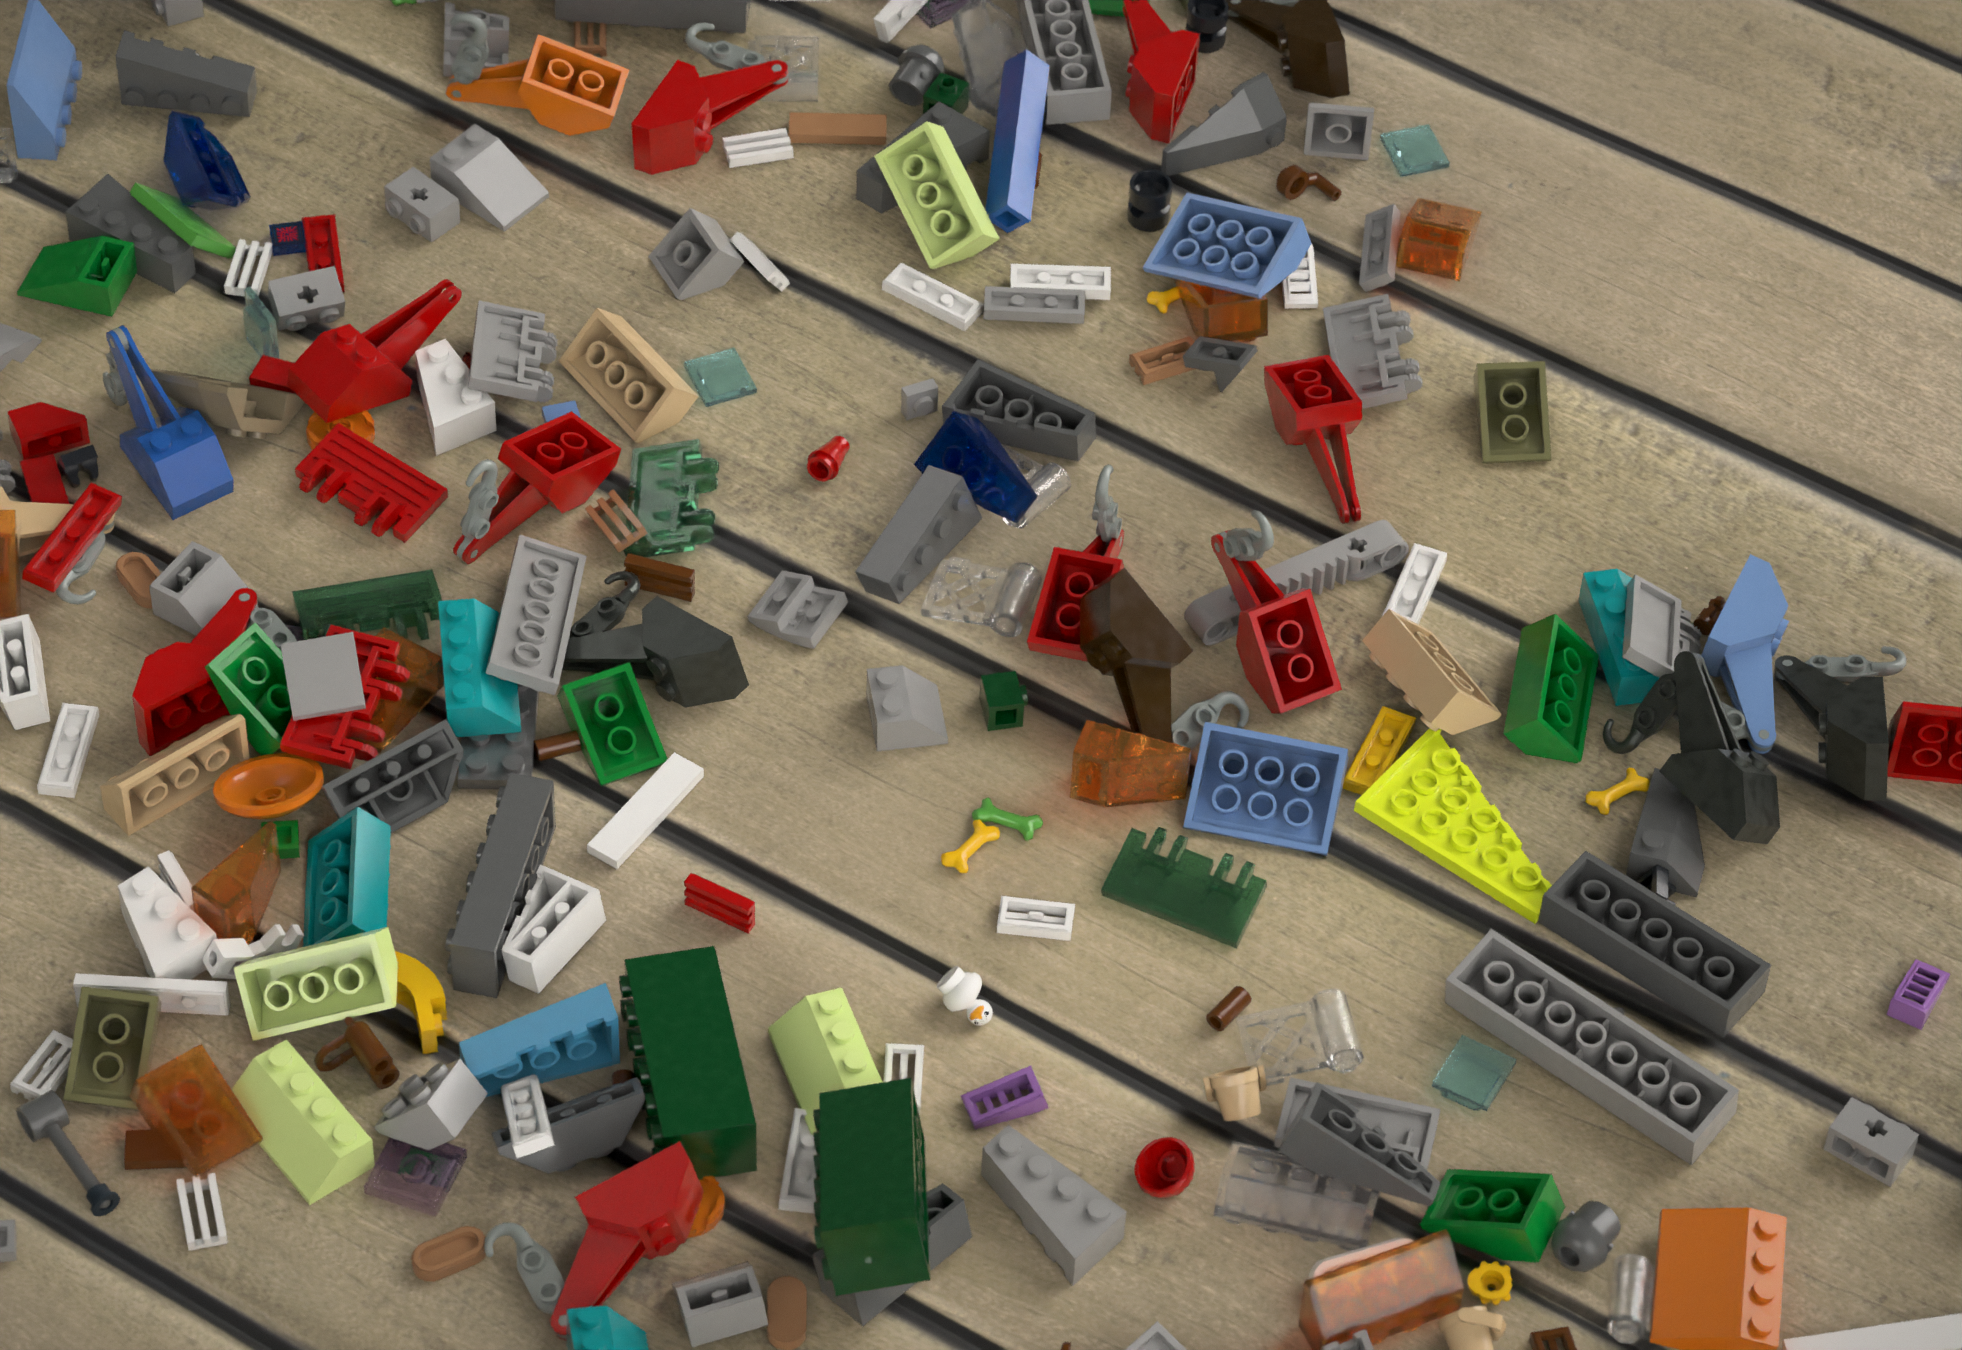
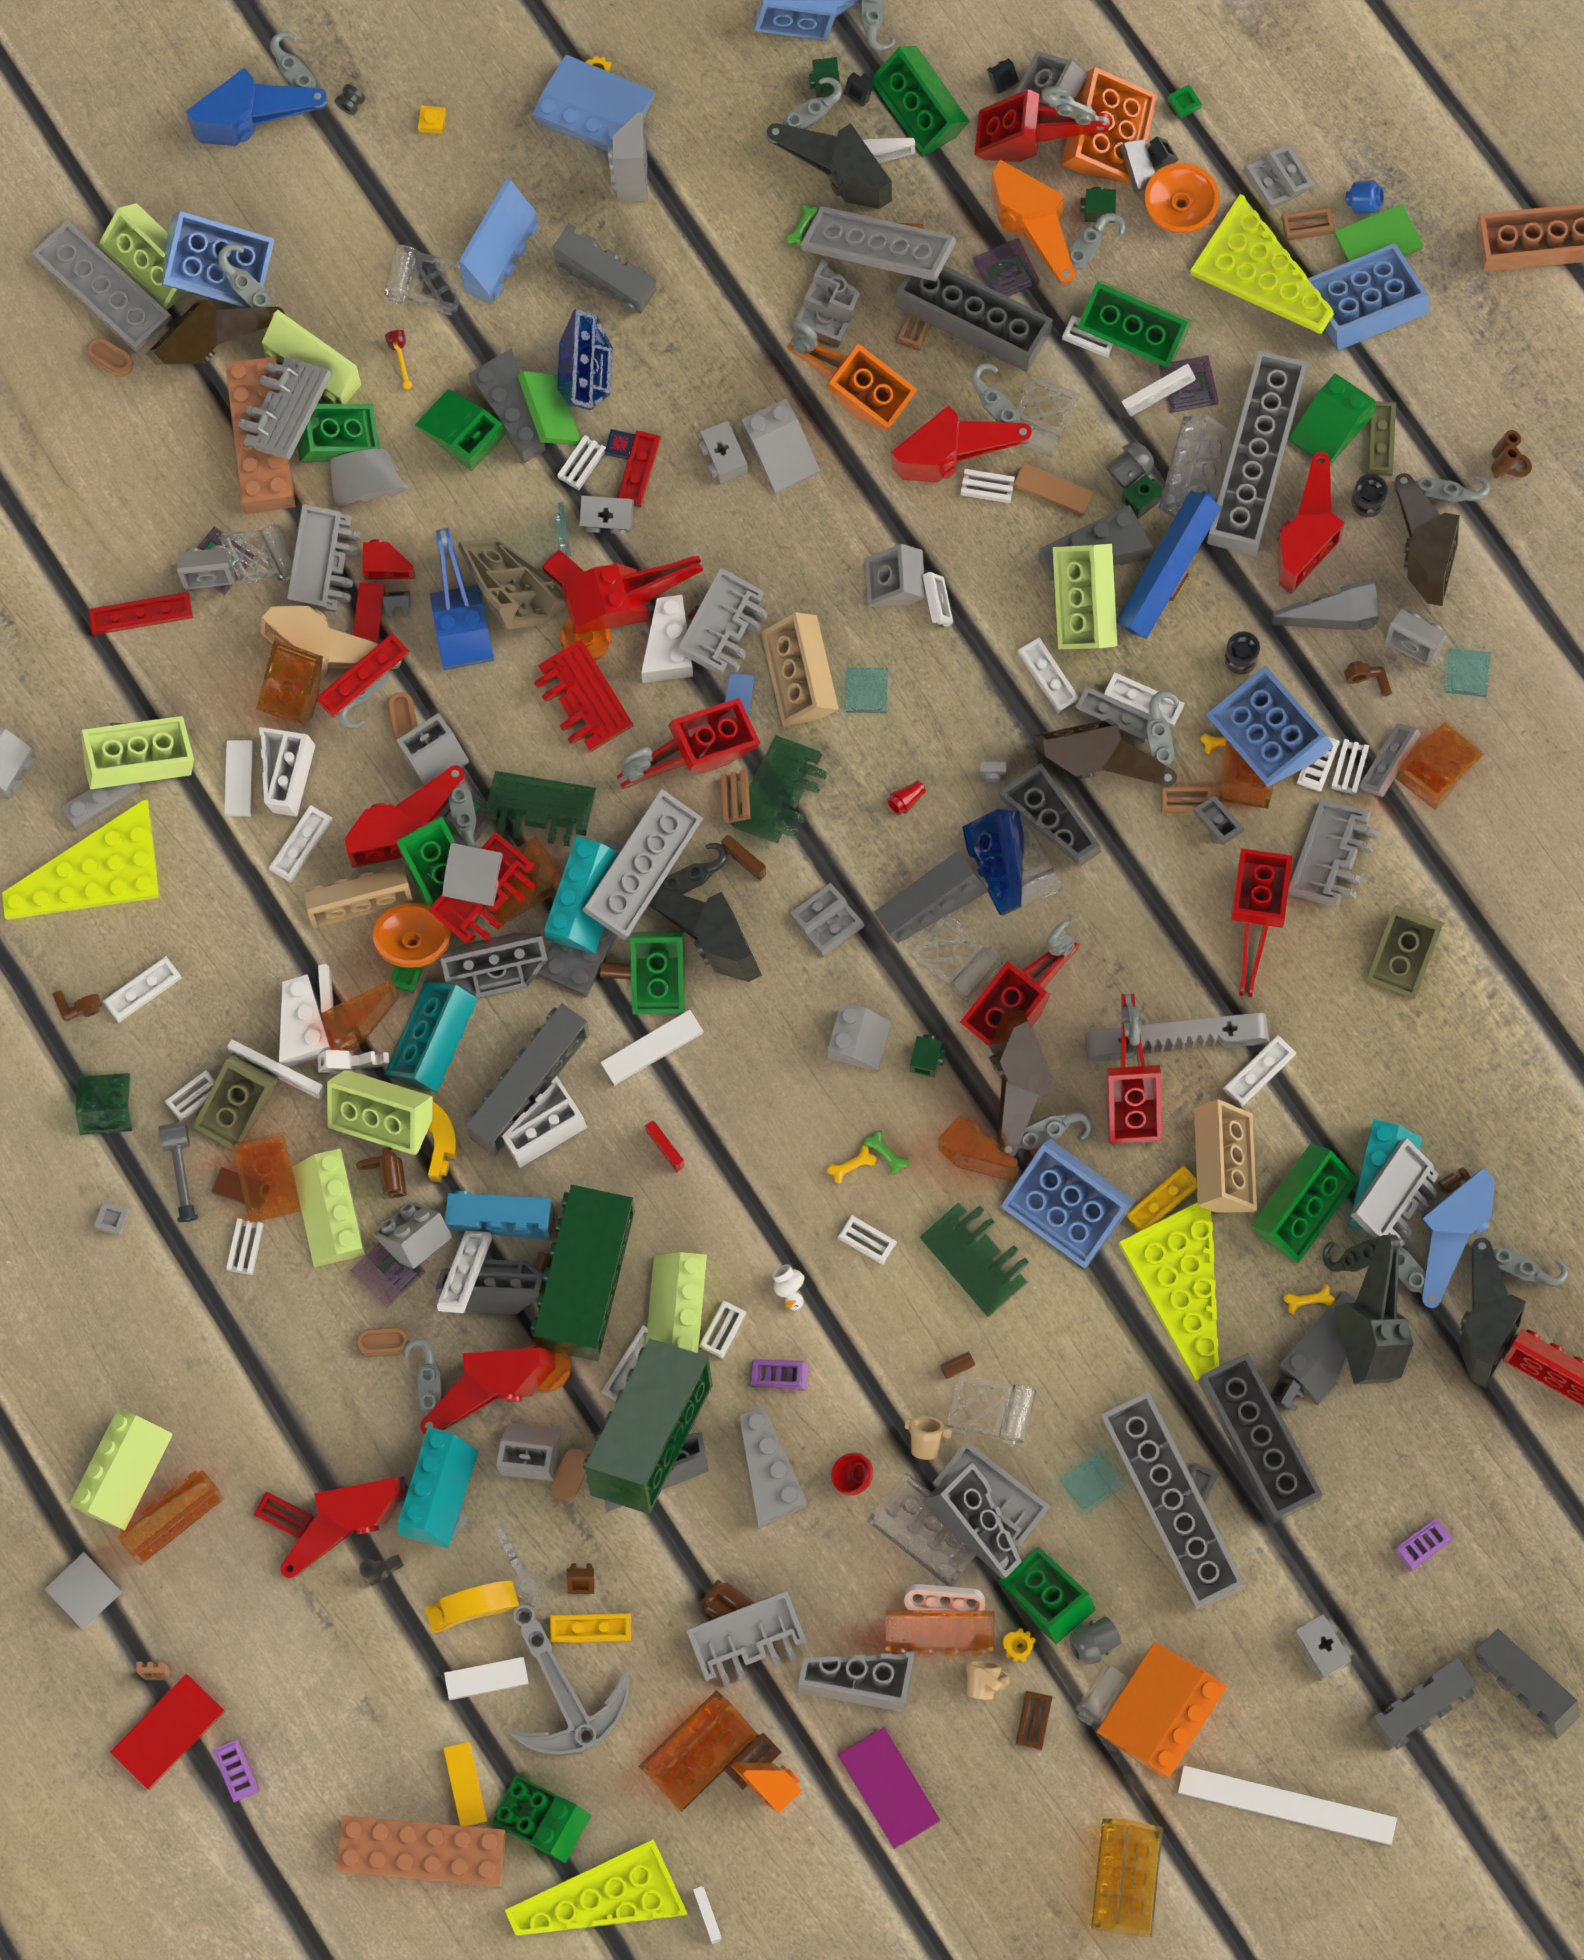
camera: 30 degrees right, 25 degrees up
(1042, 327) = (1099, 747): none -> dark brown slope
(1333, 254) = (1355, 747): none -> white tile

